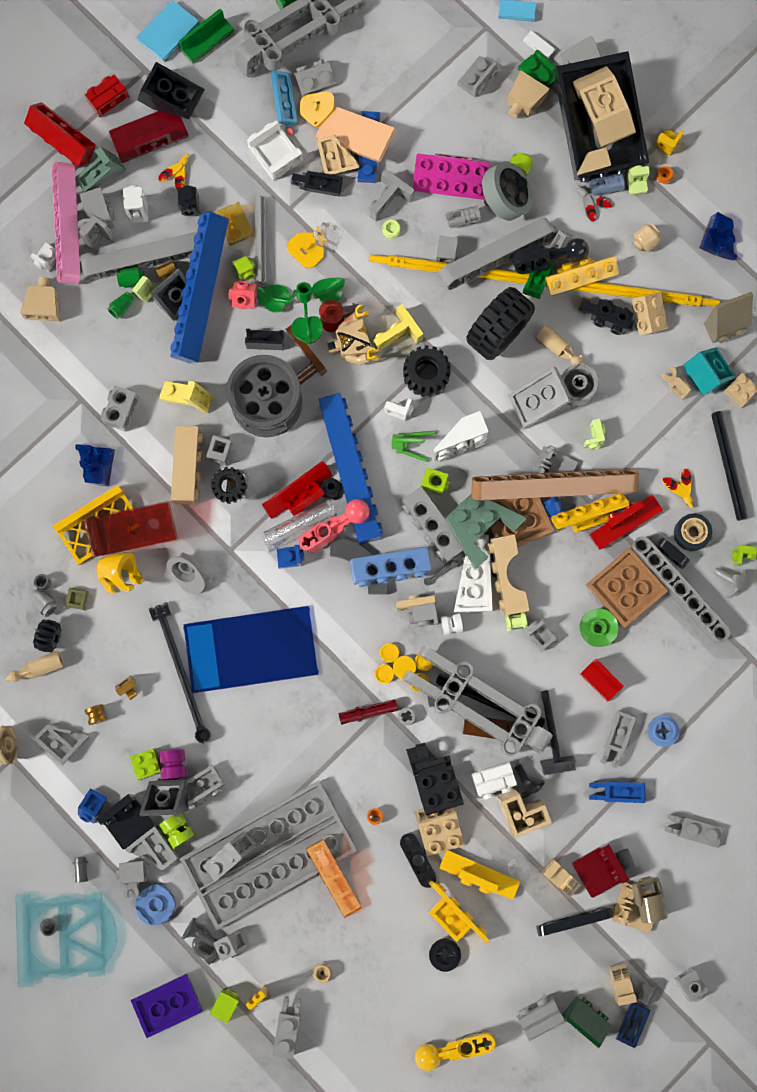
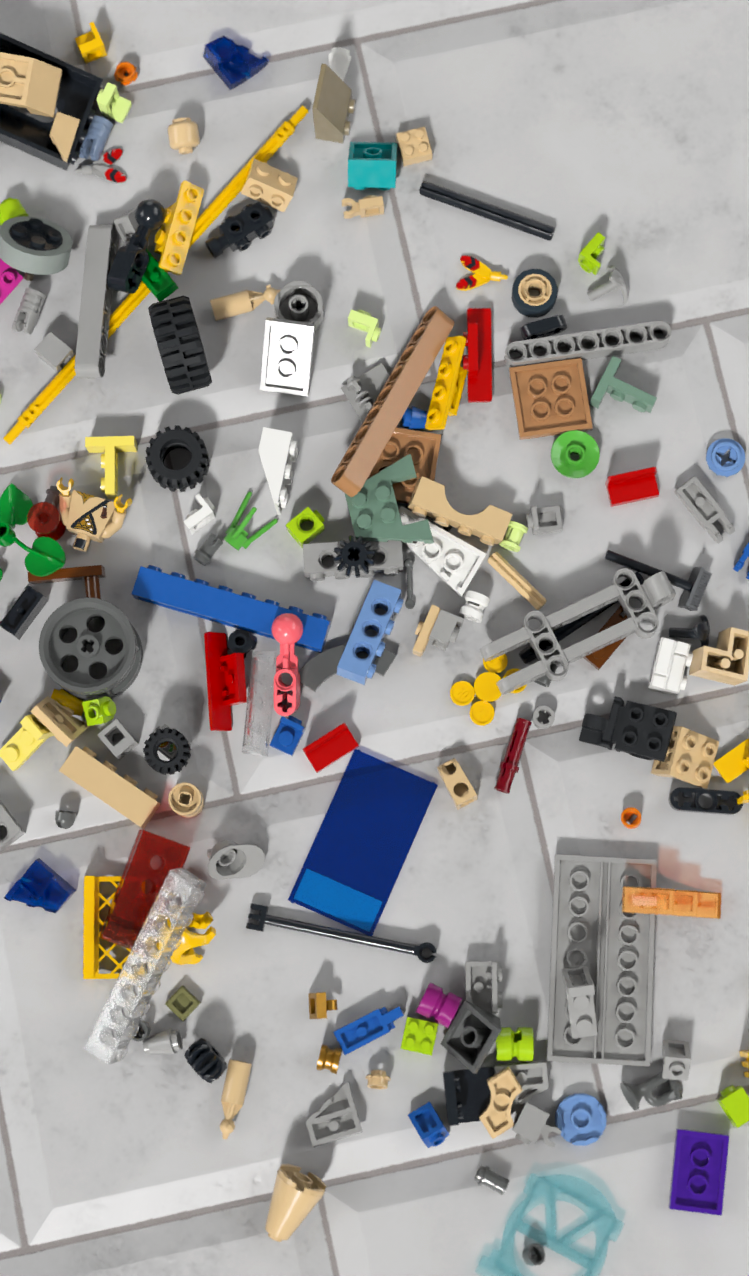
camera: 55 degrees left, 0 degrees up
(82, 558) = (102, 1039): none -> clear brick
(101, 754) = (378, 1079): none -> tan plate
(130, 727) = (367, 1029): none -> blue hinge
(142, 841) = (503, 1090): none -> tan tile
(149, 450) = (64, 819): none -> dark grey hinge
(206, 518) = (186, 800): none -> tan wheel
(207, 406) = (59, 720): none -> tan wing
(222, 404) = (68, 700): none -> yellow cone
(230, 426) = (104, 708): none -> lime plate
(299, 589) = (330, 747): none -> red panel
(326, 686) = (457, 783): none -> tan leg
(378, 428) = (207, 550): none -> dark grey pin
(436, 529) = (344, 556): none -> black gear
(487, 642) = (517, 580): none -> tan axle
(662, 630) = (620, 390): none -> sand green bracket

